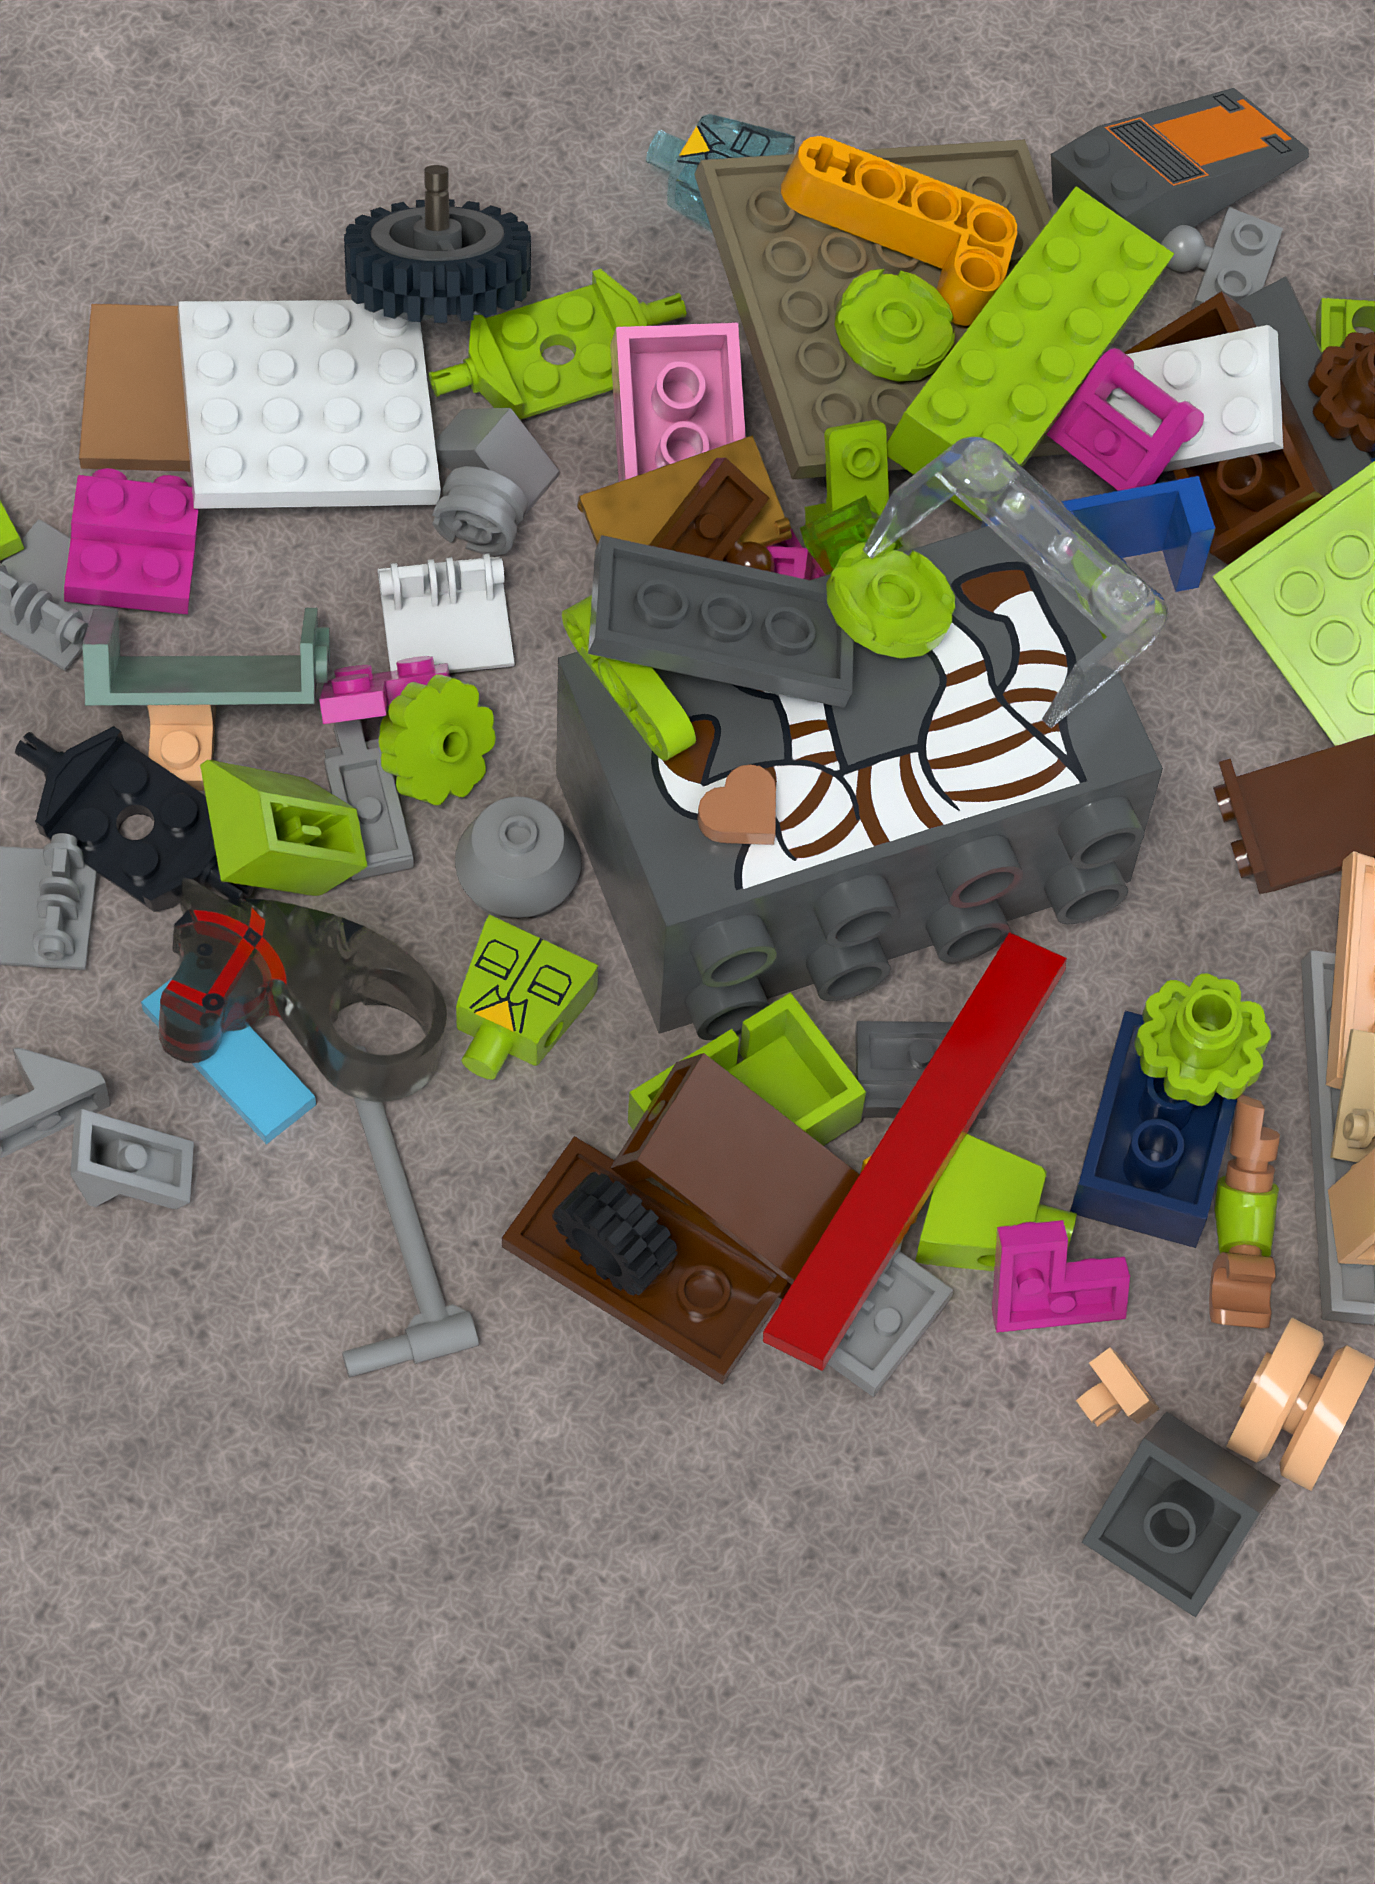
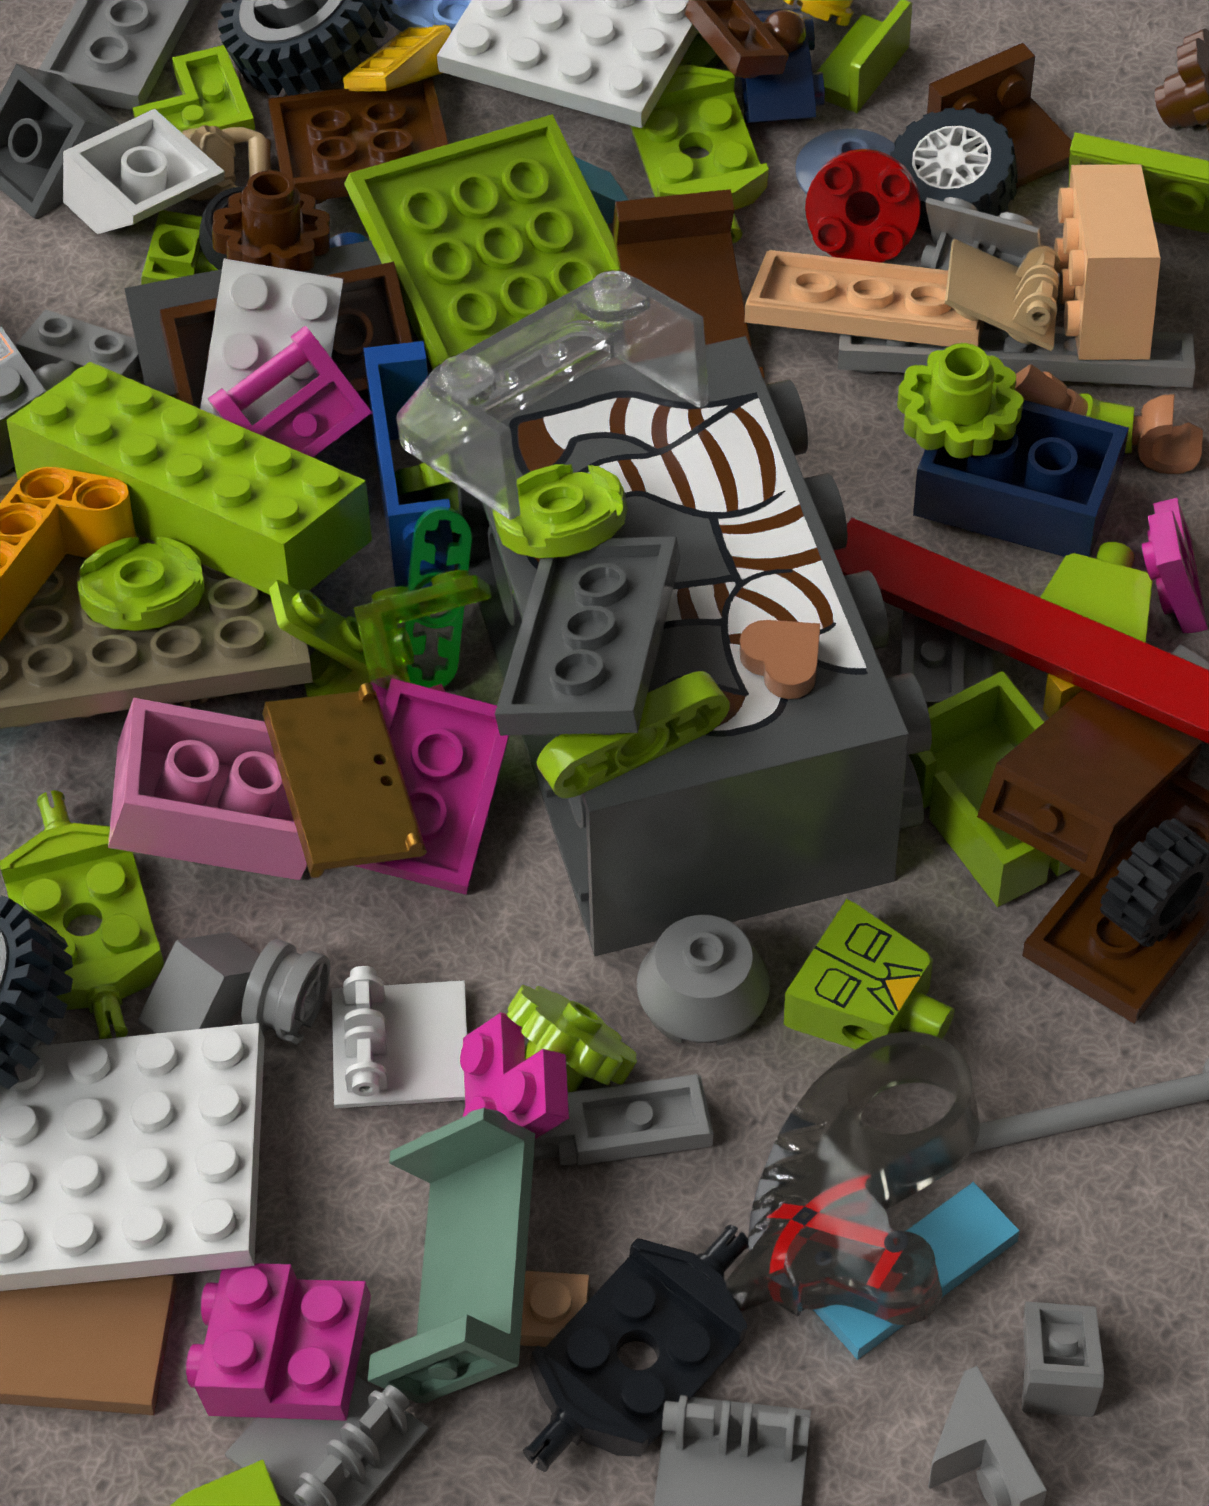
camera: 80 degrees left, 10 degrees down
(280, 830) = (671, 1183): lime slope -> none
(716, 517) = (379, 746): reddish brown plate -> none

